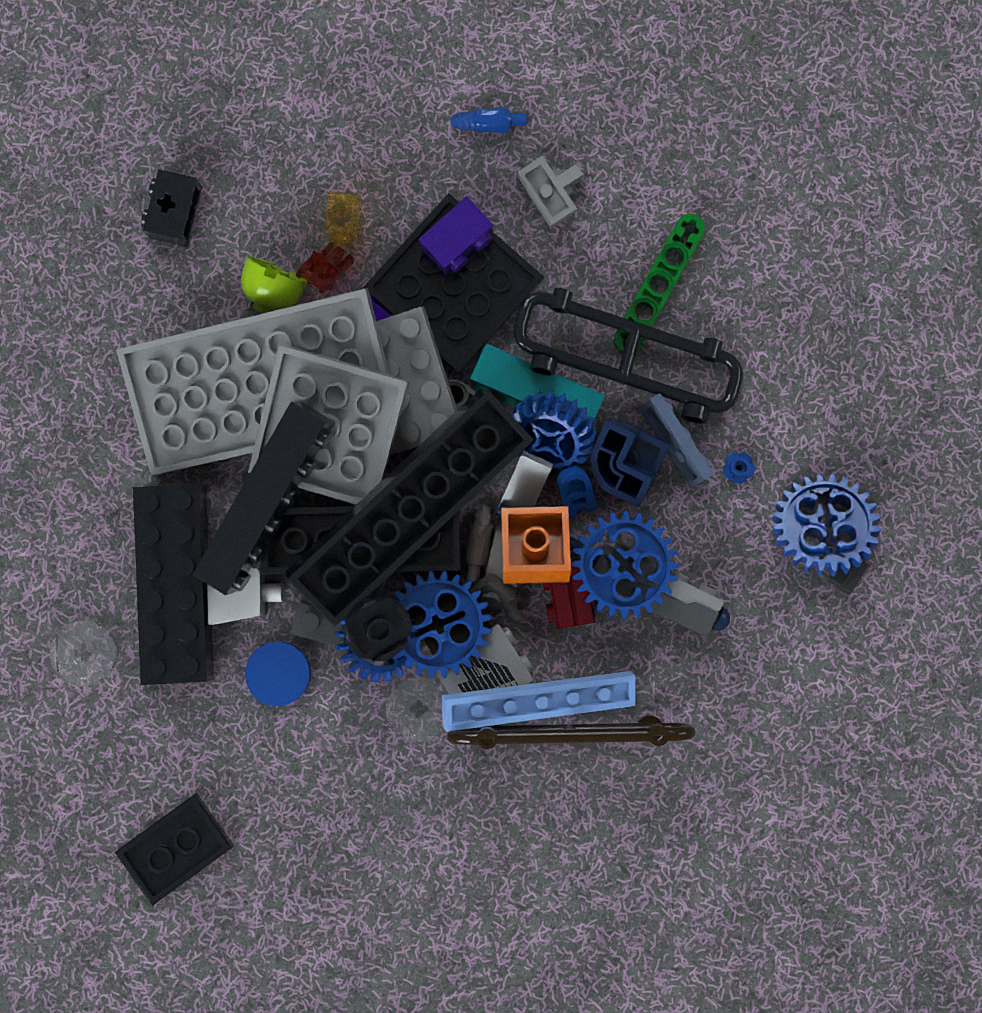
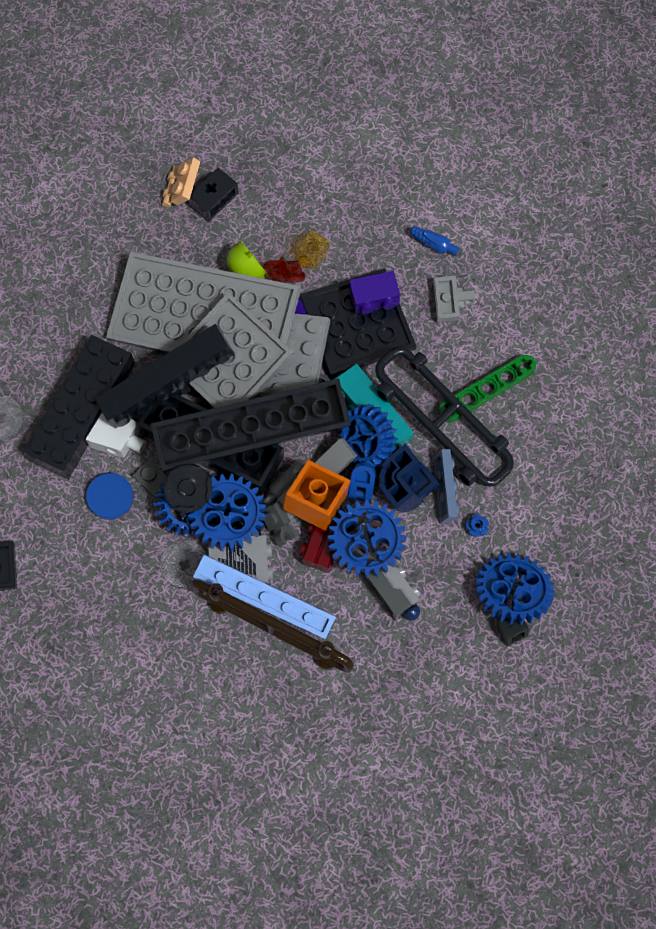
camera: 30 degrees right, 15 degrees down
(122, 215) = (180, 182): none -> light nougat plate

